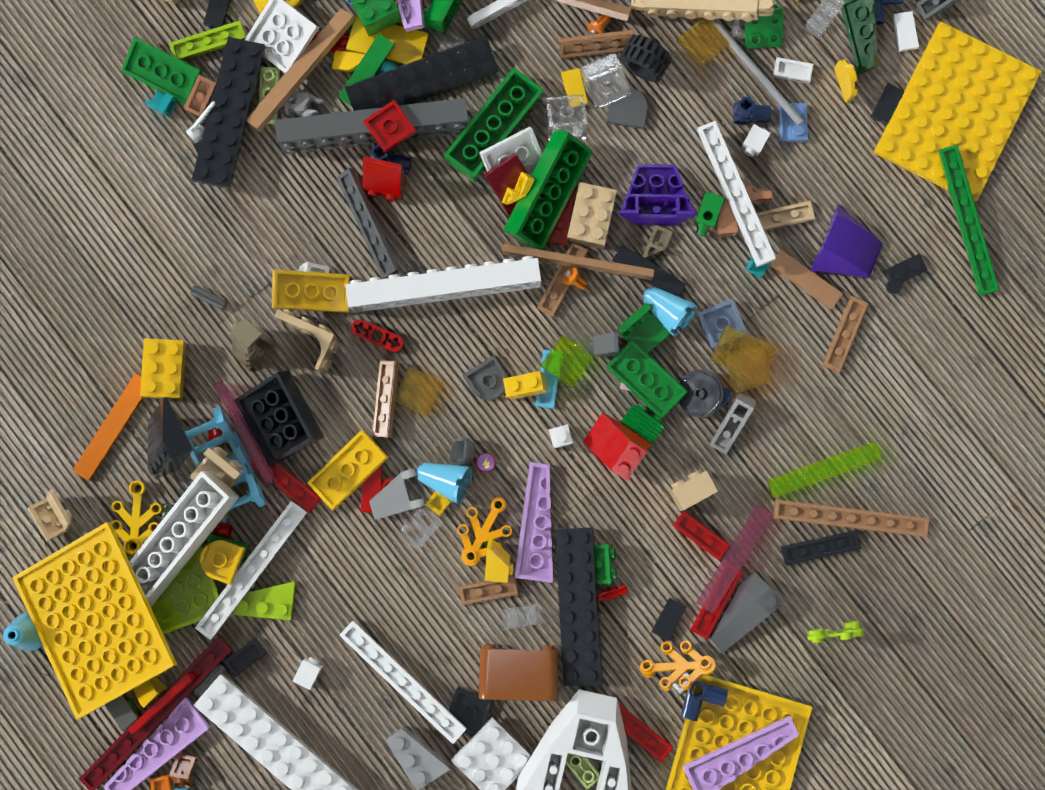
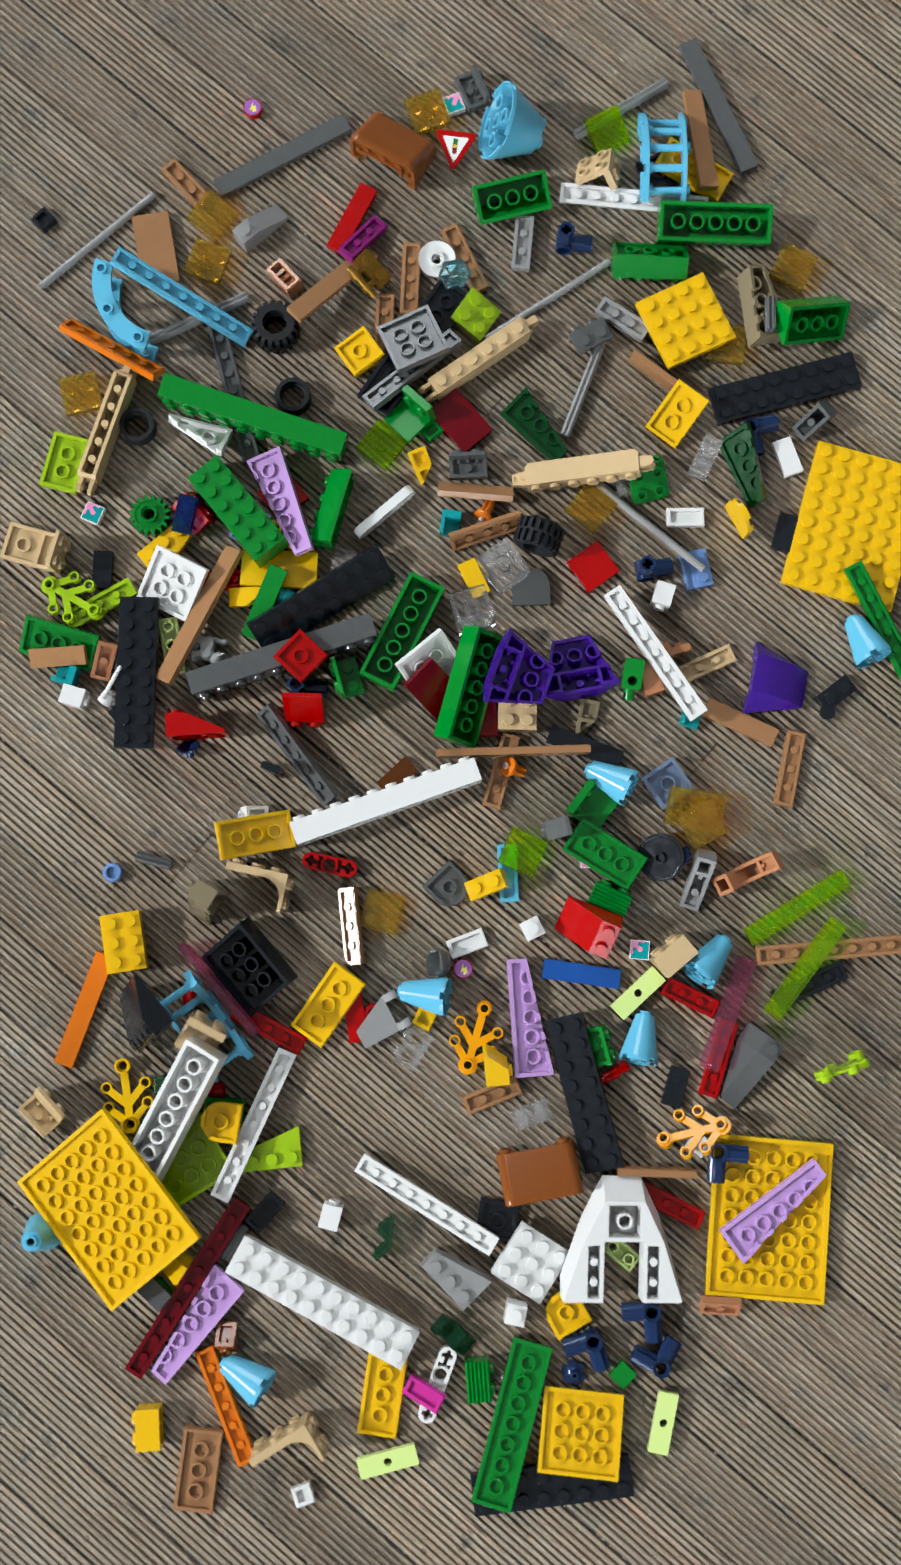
camera: 15 degrees left, 0 degrees up
(157, 82) = (58, 656): none -> medium nougat tile
(162, 703) = (192, 1276): red tile -> none
(164, 124) = (74, 697): none -> white brick
(166, 301) = (112, 872): none -> medium blue tile
(181, 26) = (70, 596): none -> lime plant
(264, 196) = (188, 748): none -> dark blue plant
(266, 175) = (183, 726): none -> red slope
(340, 231) = (273, 769): none -> black tile
(358, 699) = (385, 1229): none -> clear green slope
(431, 161) = (347, 676): none -> green bracket
(466, 257) = (401, 770): none -> reddish brown tile
(494, 439) = (467, 943): none -> white tile
(522, 188) = (443, 691): yellow slope -> none
(562, 28) = (450, 521): none -> teal panel
(597, 185) = (517, 673): none -> dark purple wedge
(600, 491) = (581, 973): none -> blue tile
(633, 697) = (657, 1171): none -> medium nougat tile
(644, 567) = (641, 1041): none -> medium azure cone
(661, 479) = (639, 949): none -> tile
(661, 514) = (647, 984): none -> yellowish green tile
(692, 100) = (592, 567): none -> red tile
(726, 504) = (710, 961): none -> medium azure cone
(782, 425) = (747, 872): none -> nougat arch
(819, 530) = (804, 968): none -> clear neon green plate
(945, 225) = (865, 642): none -> medium azure cone

